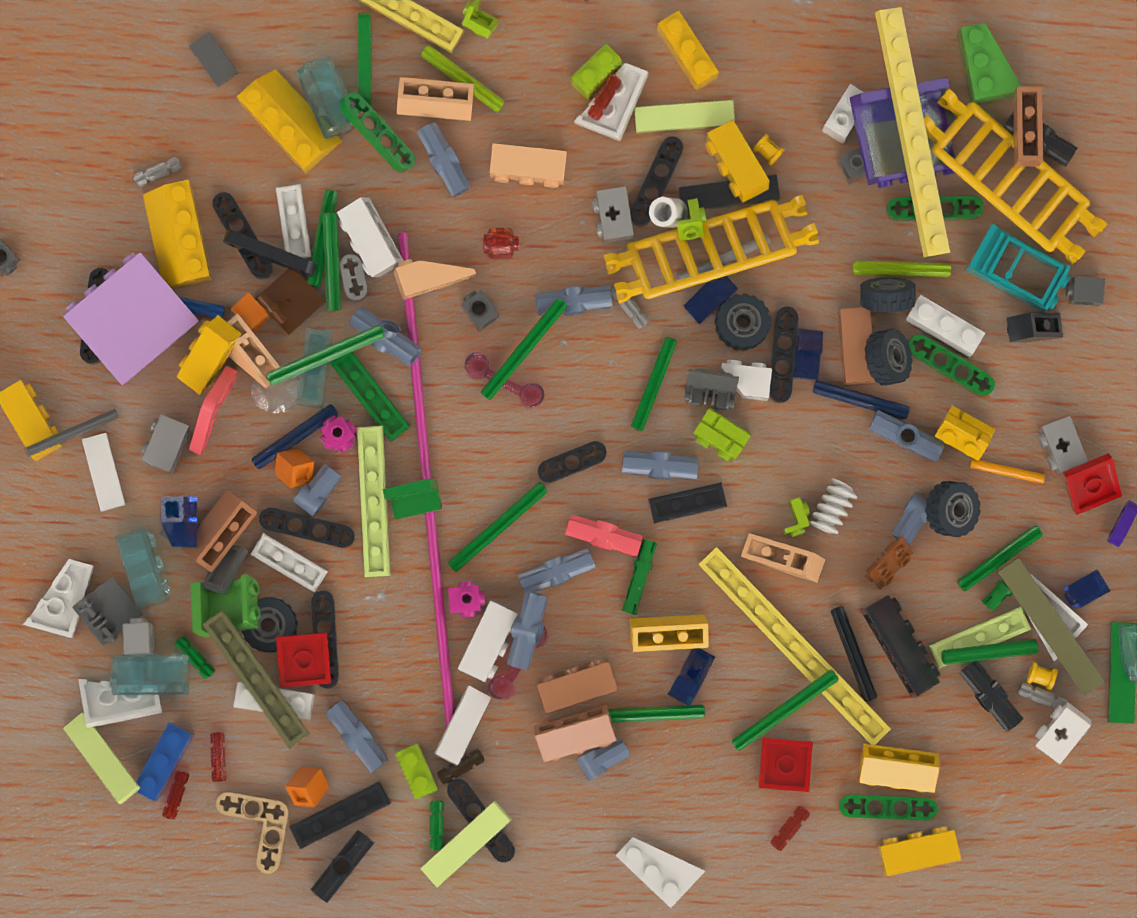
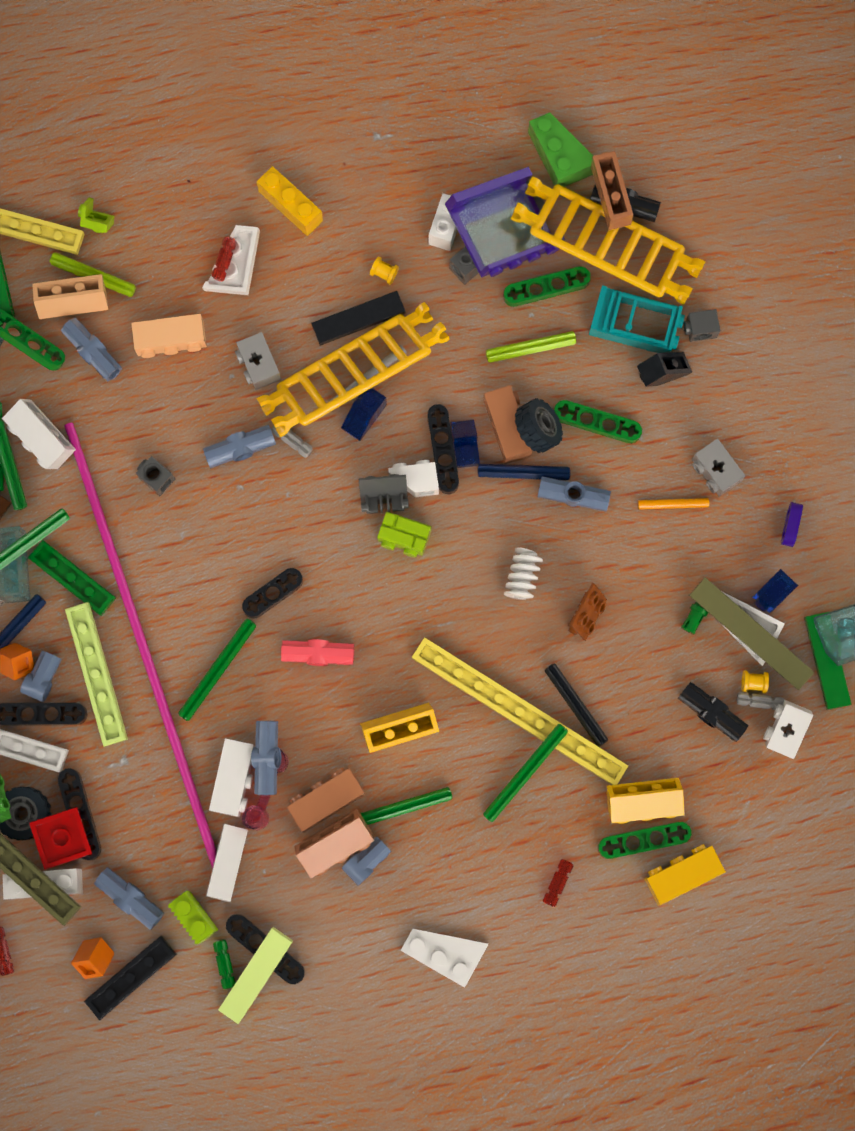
camera: 10 degrees left, 5 degrees down
(269, 824) = (64, 1003): tan beam -> none
(331, 879) = (135, 1040): black piece -> none
(340, 443) = (54, 625): dark pink brick -> none
(359, 276) = (28, 477): light grey beam -> none
(393, 342) = (79, 521): sand blue piece -> none
(414, 498) = (132, 661): green panel -> none
(424, 276) = (96, 457): light nougat slope -> none
(456, 599) = (194, 740): dark pink brick -> none
(465, 765) = (236, 902): dark brown axle -> none
(500, 243) = (159, 411): clear red head -> none
(524, 349) = (202, 500): green axle -> none
(529, 395) = (219, 541): clear pink piece -> none
(557, 571) = (282, 696): sand blue piece -> none
(596, 71) = (210, 238): lime brick -> none
(639, 576) = (360, 677): green pin -> none
(653, 180) = (289, 323): black beam -> none
(653, 384) = (331, 504): green axle -> none
(660, 465) = (354, 575): sand blue piece -> none
(667, 212) = (306, 346): white piece -> none
(683, 116) = (301, 260): yellowish green tile -> none
(687, 503) = (388, 604): black tile -> none
(691, 676) = (430, 762): clear blue slope -> none
(692, 228) = (330, 353): lime bracket -> none
(737, 161) = (358, 286): yellow brick -> none
(753, 311) = (398, 414): black wheel -> none
(783, 557) = (489, 632): light nougat slope -> none
(785, 764) = (539, 824): red plate -> none
(800, 512) = (494, 587): lime bracket -> none
(887, 294) = (524, 370): black wheel -> none
(900, 646) = (617, 686): black slope -> none
(911, 519) = (600, 562): sand blue piece -> none
(912, 132) = (509, 219): light yellow plate -> none
(945, 326) = (583, 387): white brick -> none
(952, 508) = (633, 548): black wheel -> none
(965, 433) = (626, 477): yellow brick -> none
(988, 652) = (701, 671): green axle -> none
(989, 632) = (688, 661): yellowish green tile -> none
(1000, 558) = (687, 584): green axle -> none
(1092, 484) = (754, 494): red plate -> none

